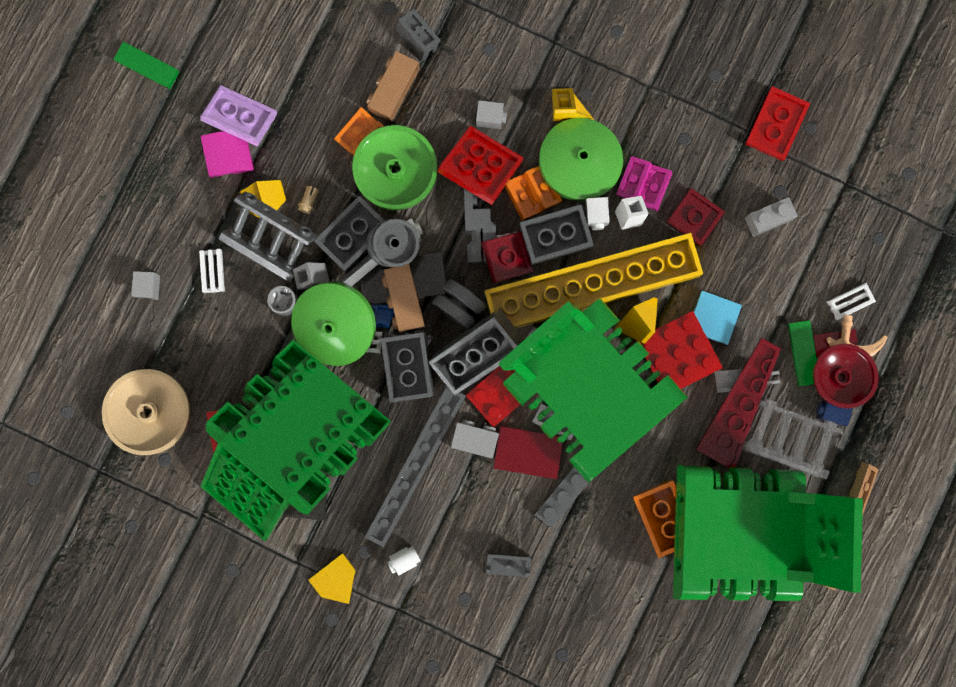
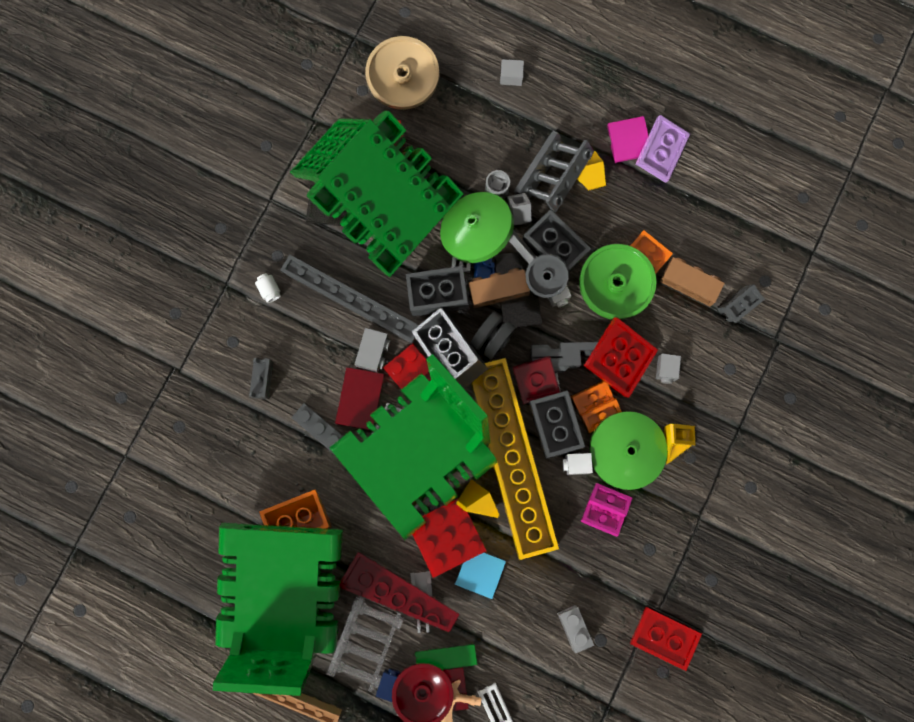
camera: 85 degrees right, 5 degrees down
(146, 65) = (705, 72): green tile -> none
(210, 253) = (518, 121): white tile -> none
(307, 202) = (588, 208): tan pin -> none
(335, 580) = (254, 230): yellow slope -> none
(631, 212) = (578, 495): white brick -> none
(695, 216) = (575, 557): dark red tile -> none

